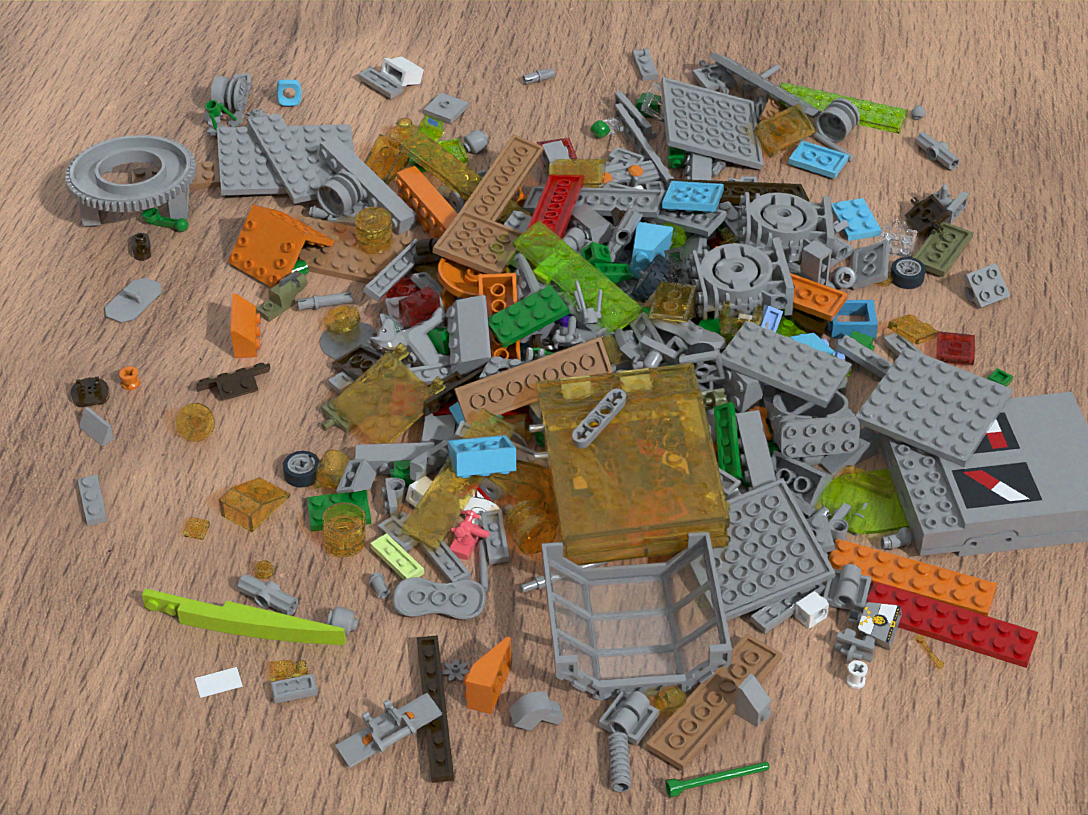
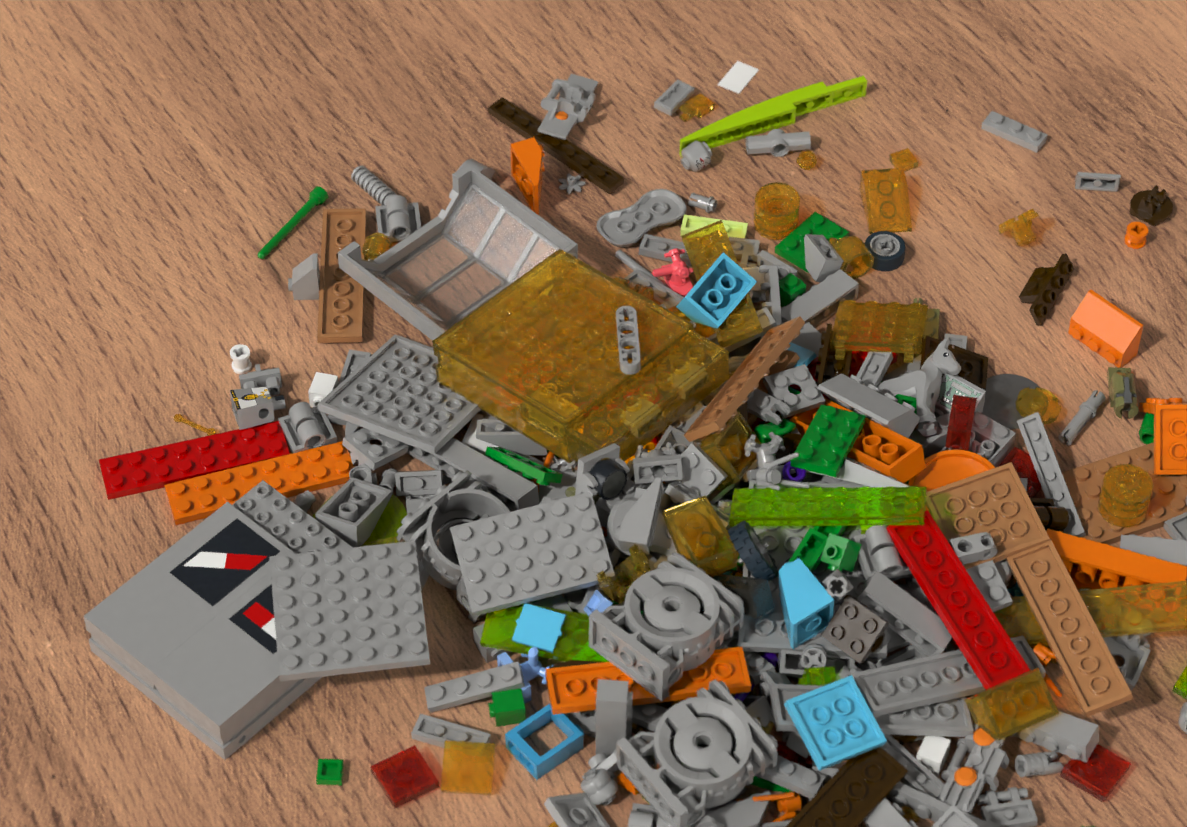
camera: 140 degrees right, 5 degrees up
(511, 225) = (974, 547): none -> light grey leg
(704, 321) = (641, 519): none -> light grey slope
(868, 495) = (354, 510): none -> light grey slope

